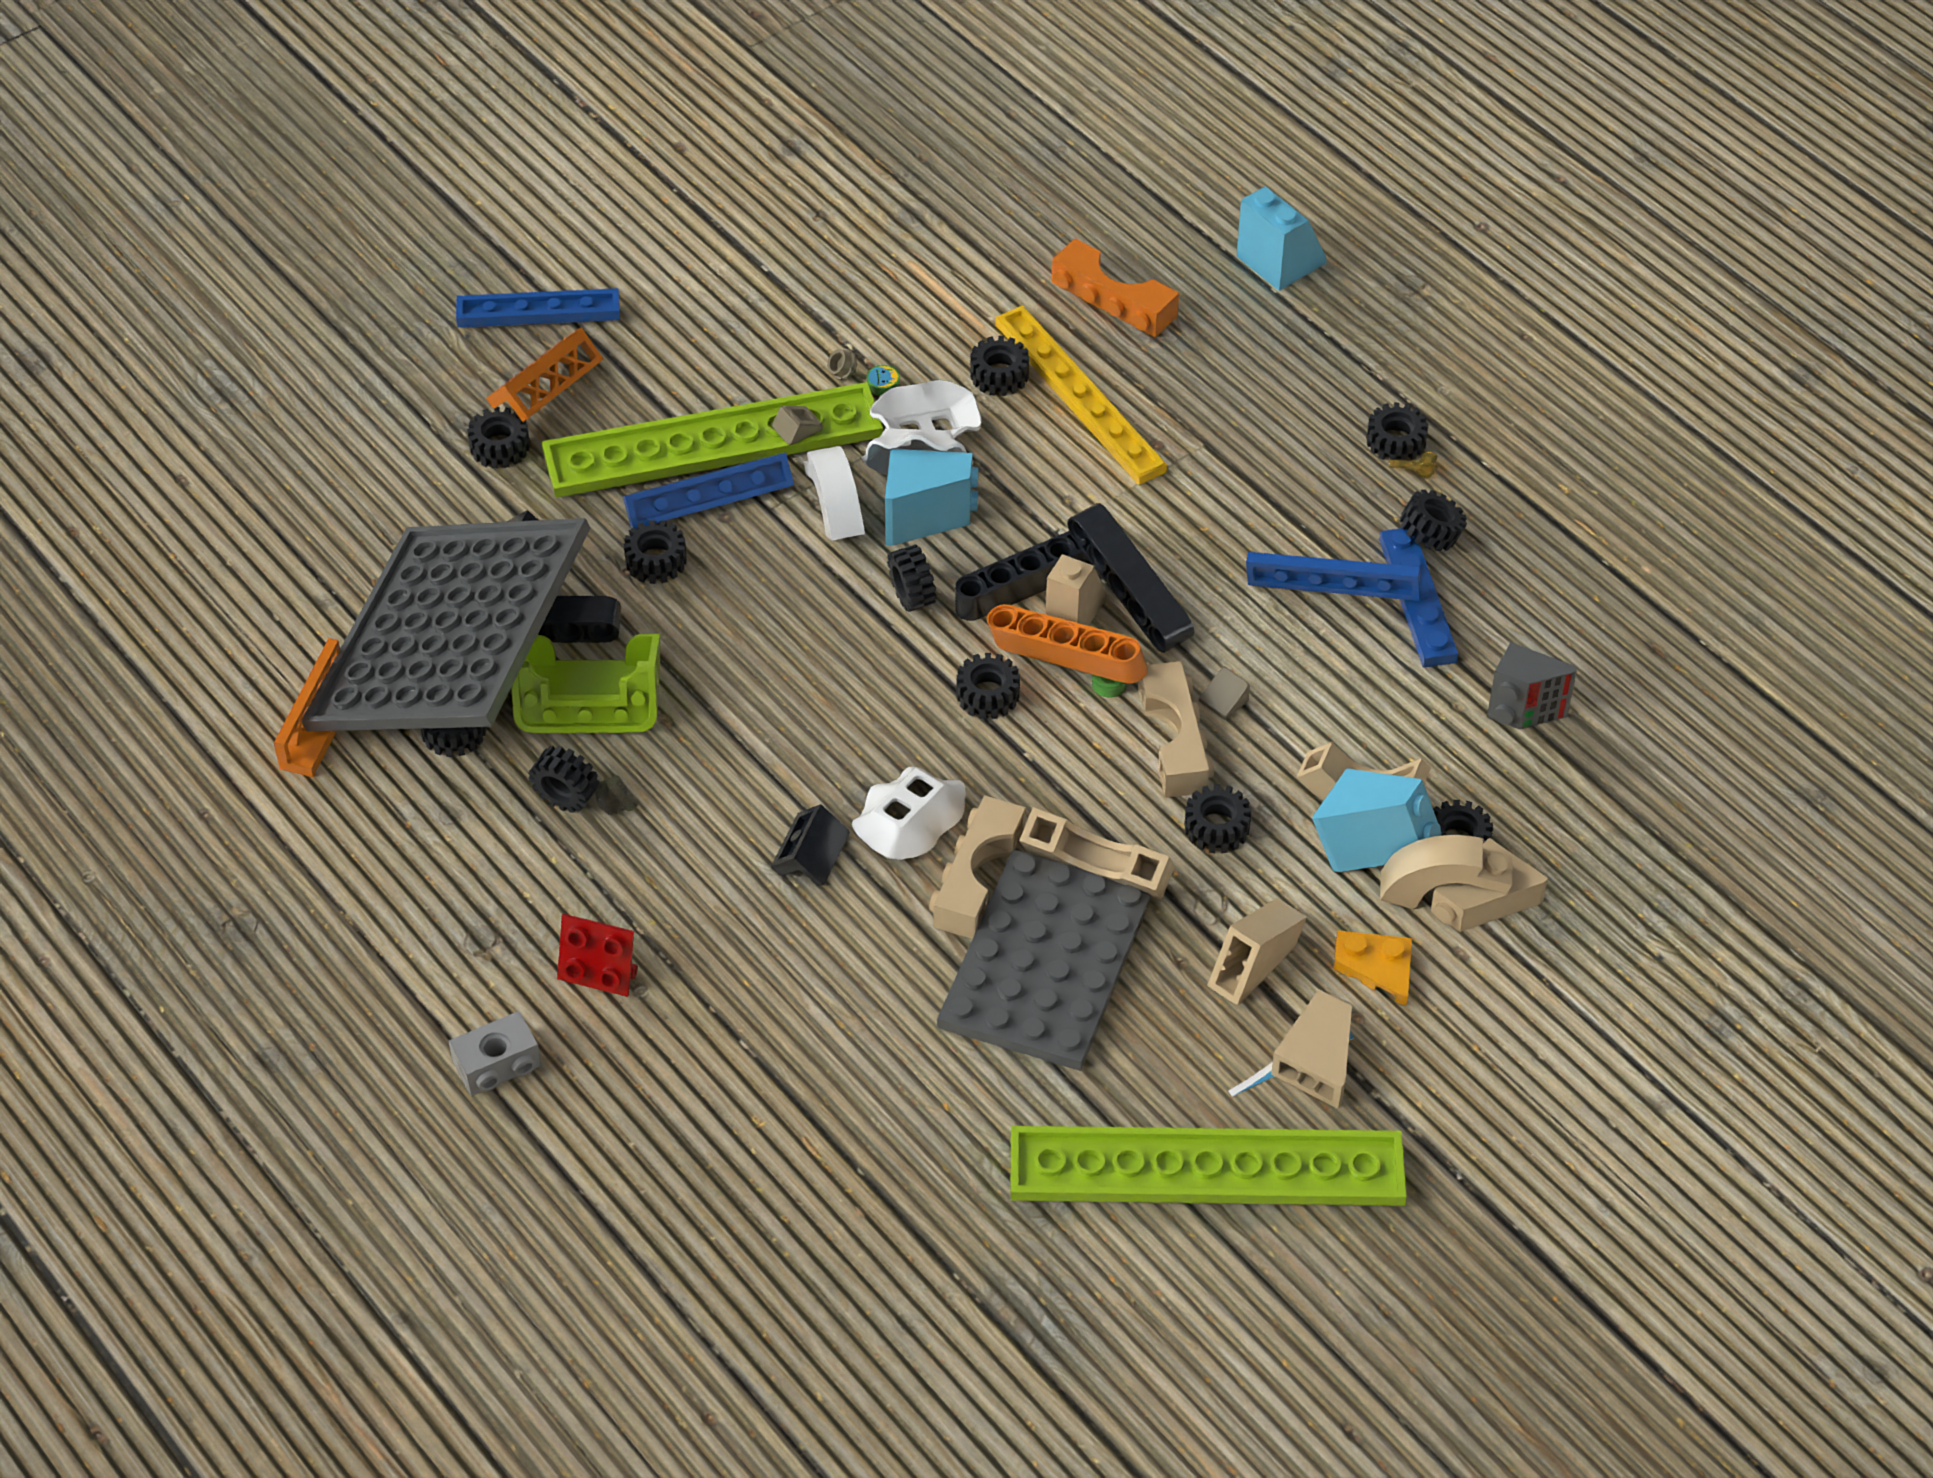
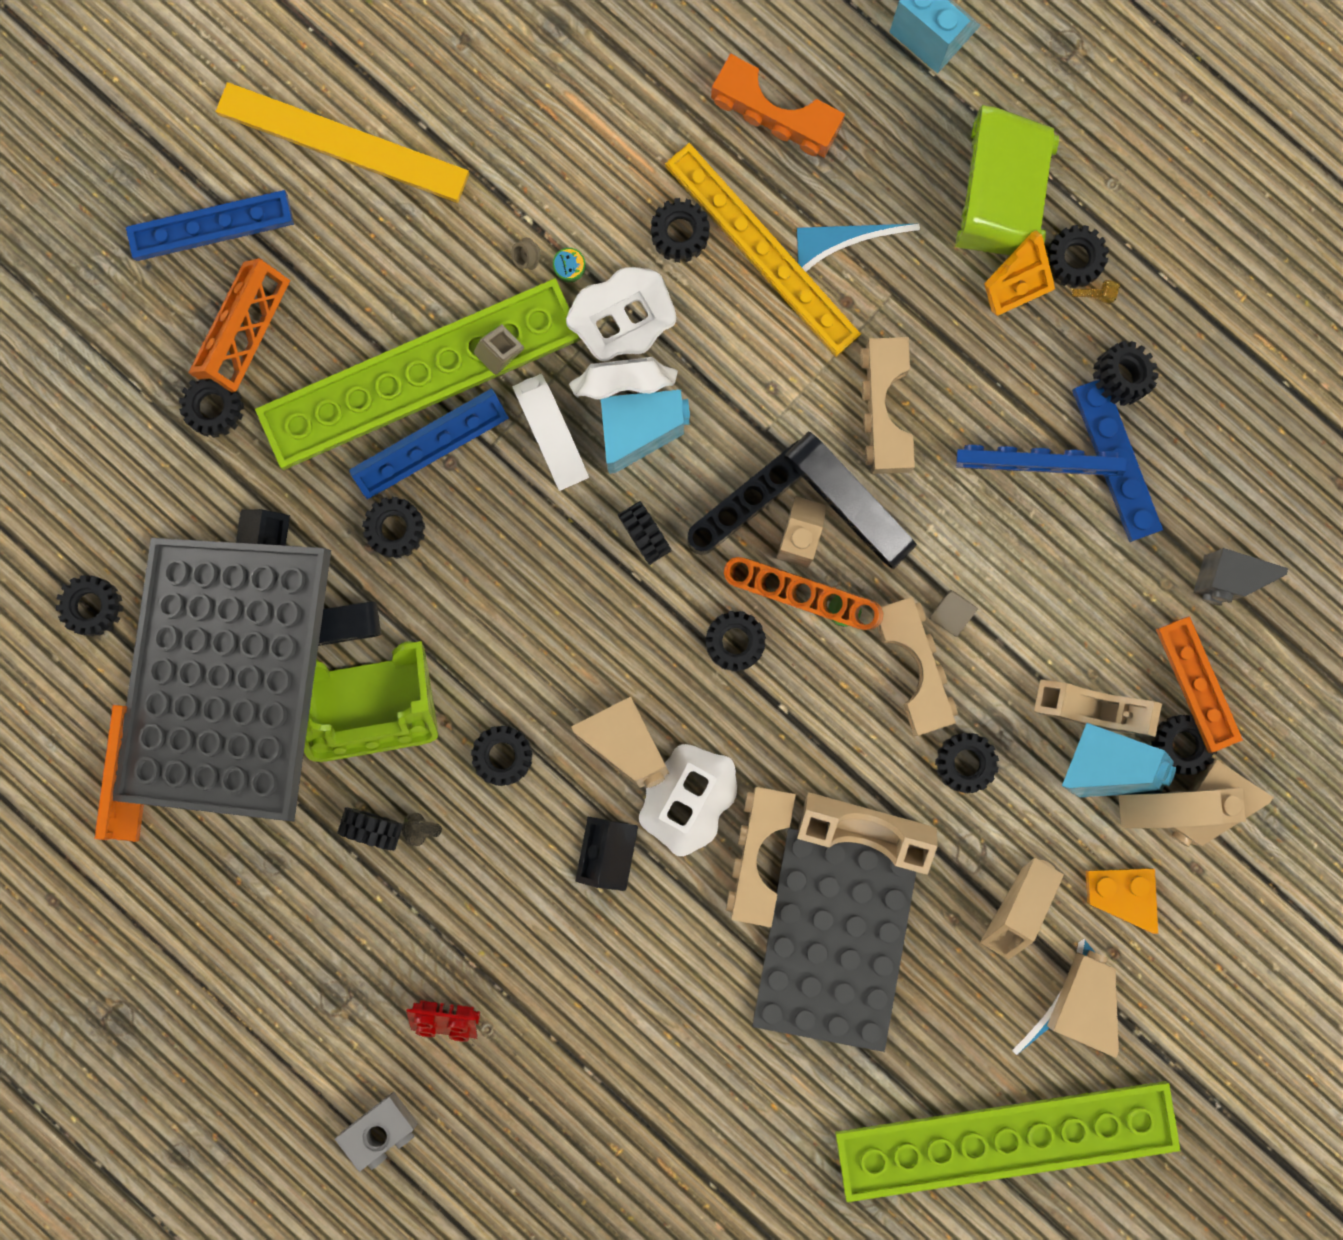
camera: 10 degrees left, 35 degrees up
(323, 559) = (69, 605): none -> black tyre
(685, 268) = (342, 142): none -> yellow tile
(718, 732) = (482, 749): none -> black tyre
(848, 746) = (624, 743): none -> tan slope
(1134, 398) = (819, 242): none -> dark azure sticker
(1181, 546) = (890, 447): none -> tan arch
(1329, 365) = (1005, 181): none -> lime windscreen
(1336, 435) = (1021, 277): none -> light orange wing
(1479, 775) = (1199, 684): none -> orange fence

